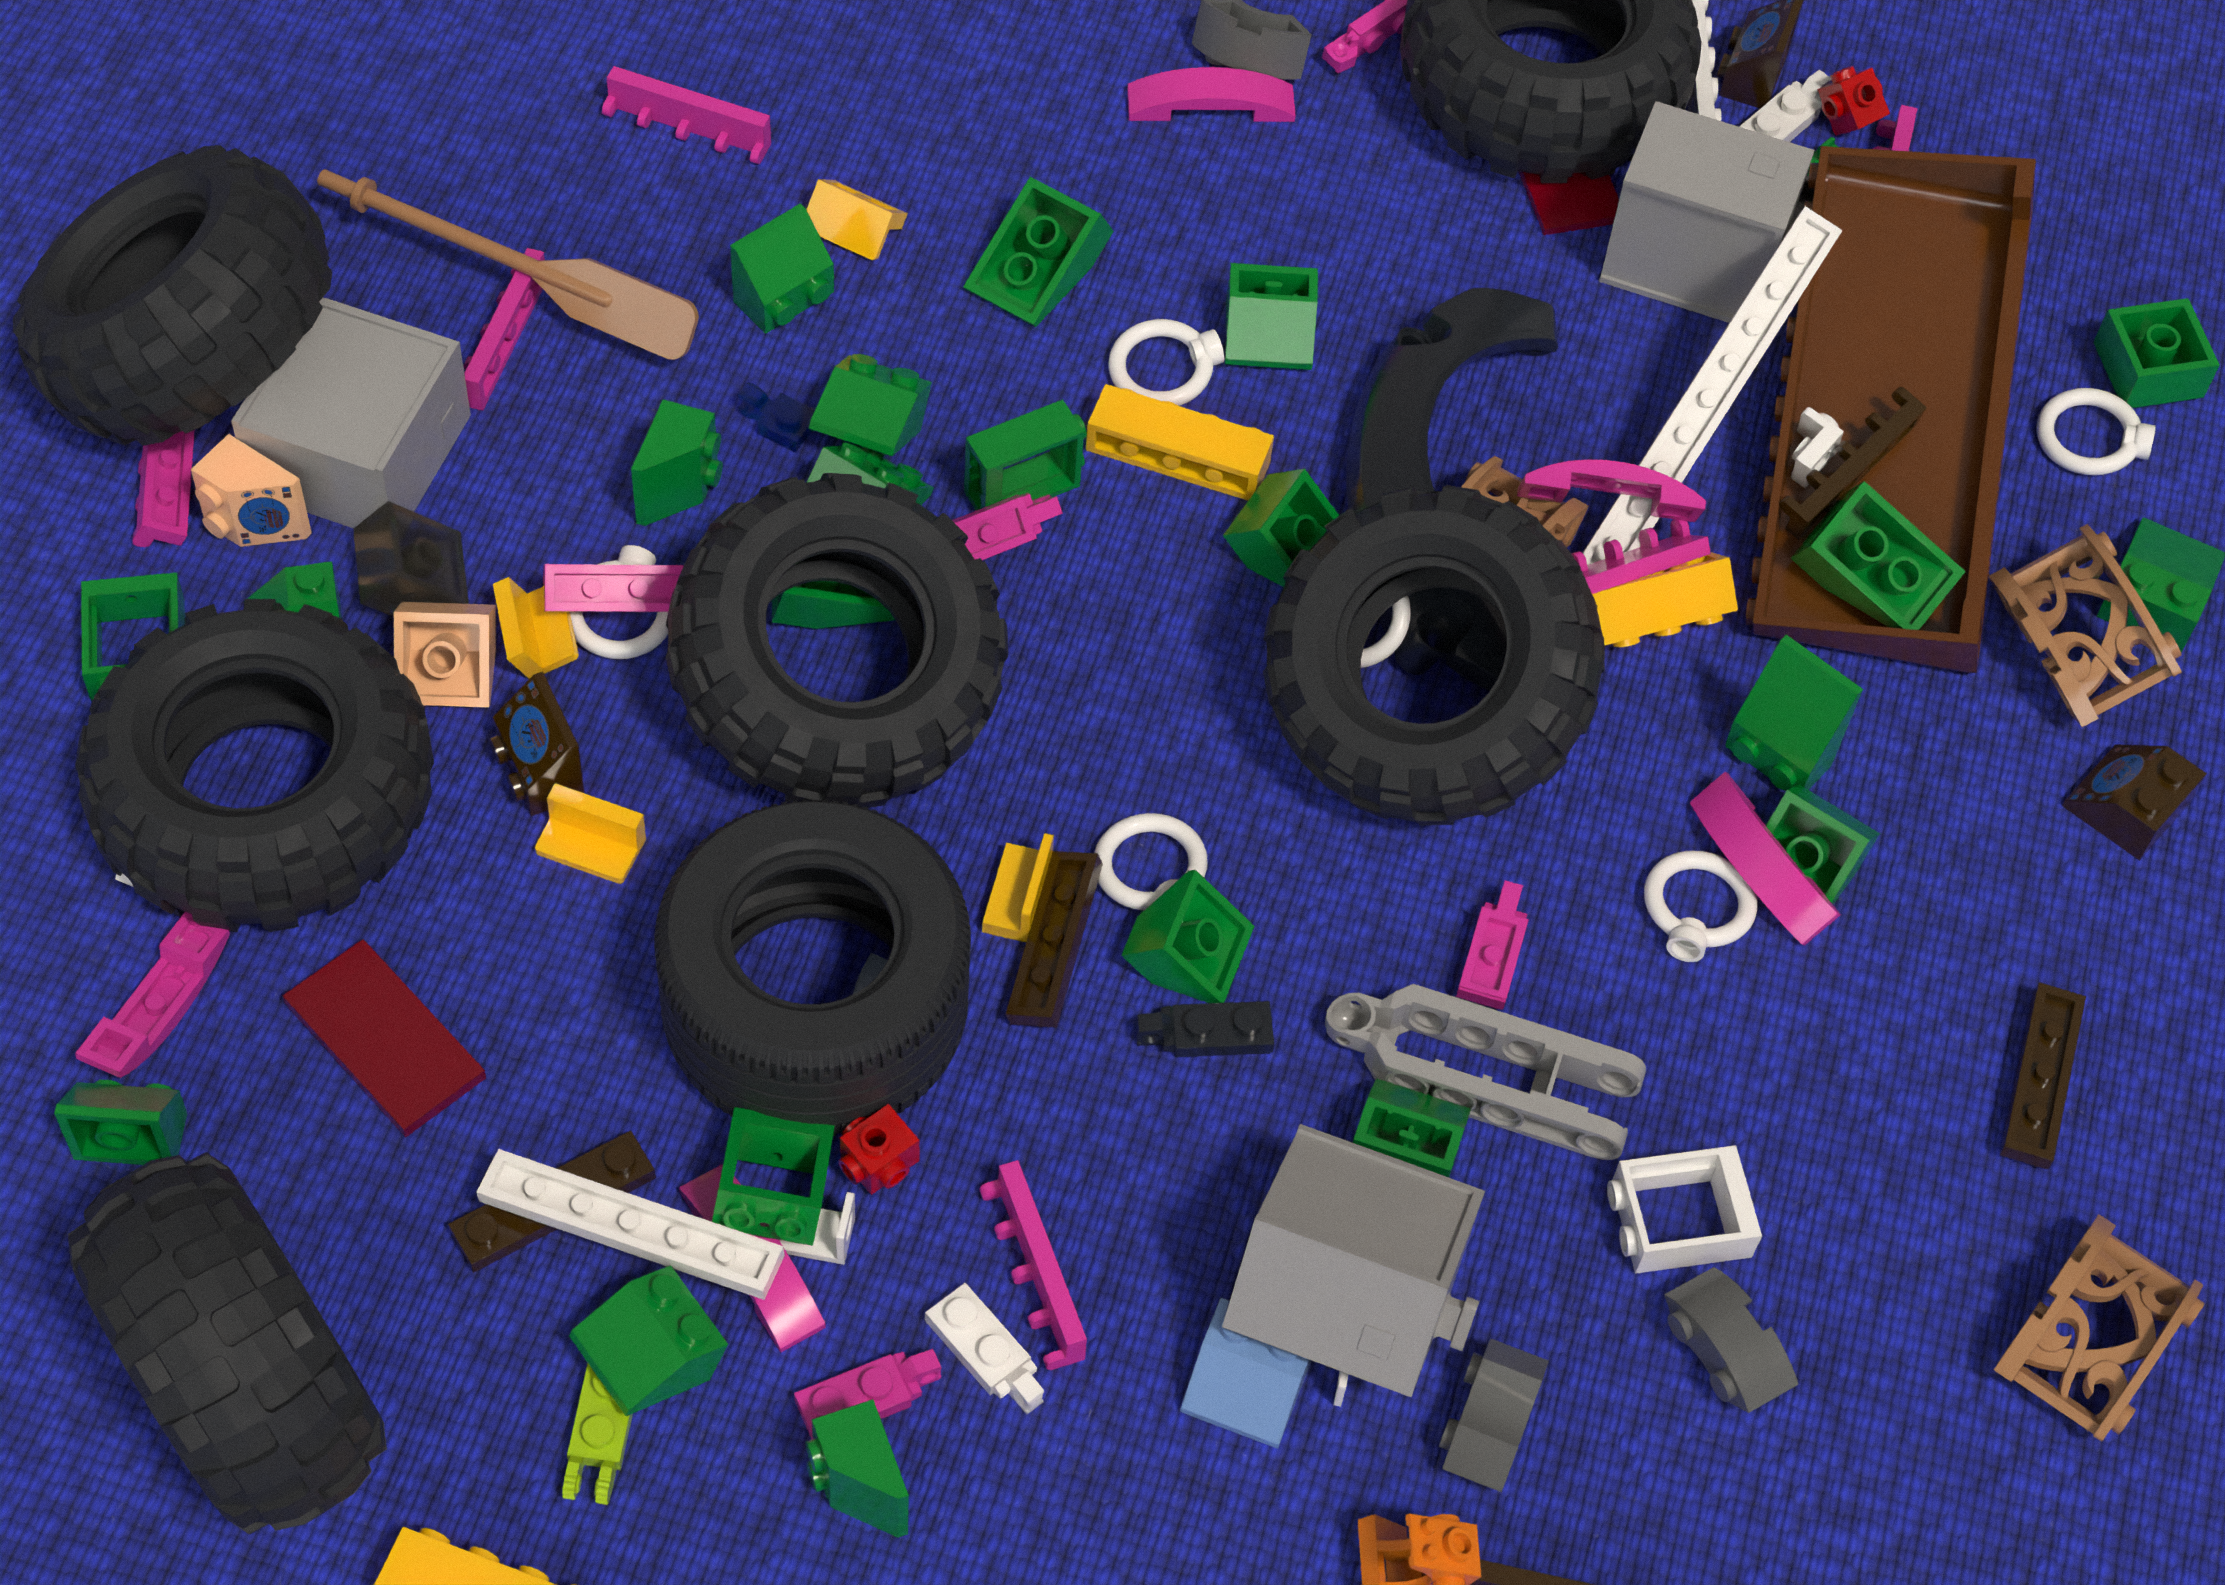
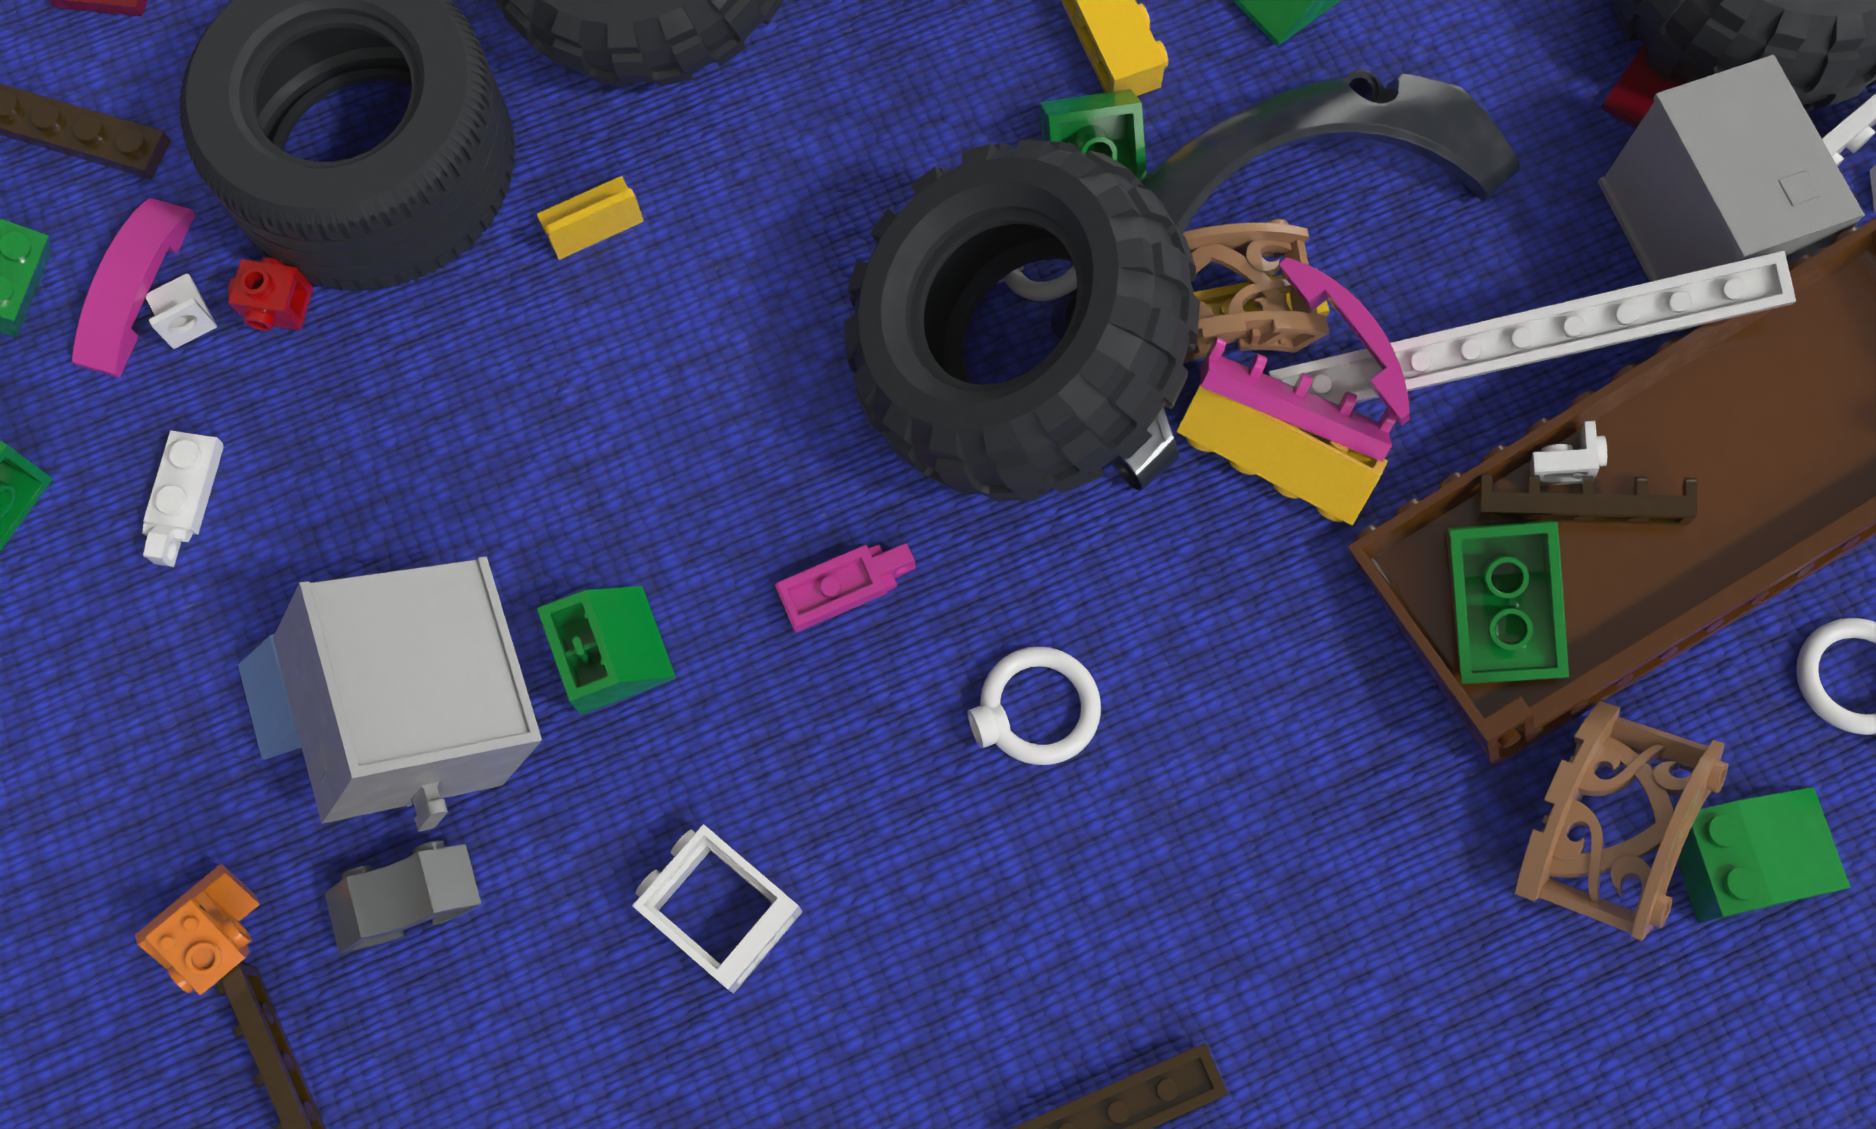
camera: 55 degrees right, 15 degrees up
(631, 1224) = (61, 188): white plate -> none
(782, 1145) = (185, 280): green window -> none
(888, 1381) = (76, 443): dark pink hinge -> none
(1040, 1266) = (272, 475): dark pink hinge -> none
(1054, 939) = (563, 271): dark brown plate -> none
(1139, 824) = (676, 323): white piece -> none
(1190, 940) = (645, 363): green slope -> none
(1209, 1029) = (587, 437): black hinge -> none
(1550, 1052) = (687, 555): light grey piece -> none
(1742, 1359) = (616, 1034): dark grey brick -> none
(1762, 860) = (1111, 725): dark pink slope -> none
(1794, 717) = (1263, 648): green slope -> none
(1821, 839) = (1167, 756): green slope -> none
(2135, 794) = (1491, 989): dark brown slope -> none

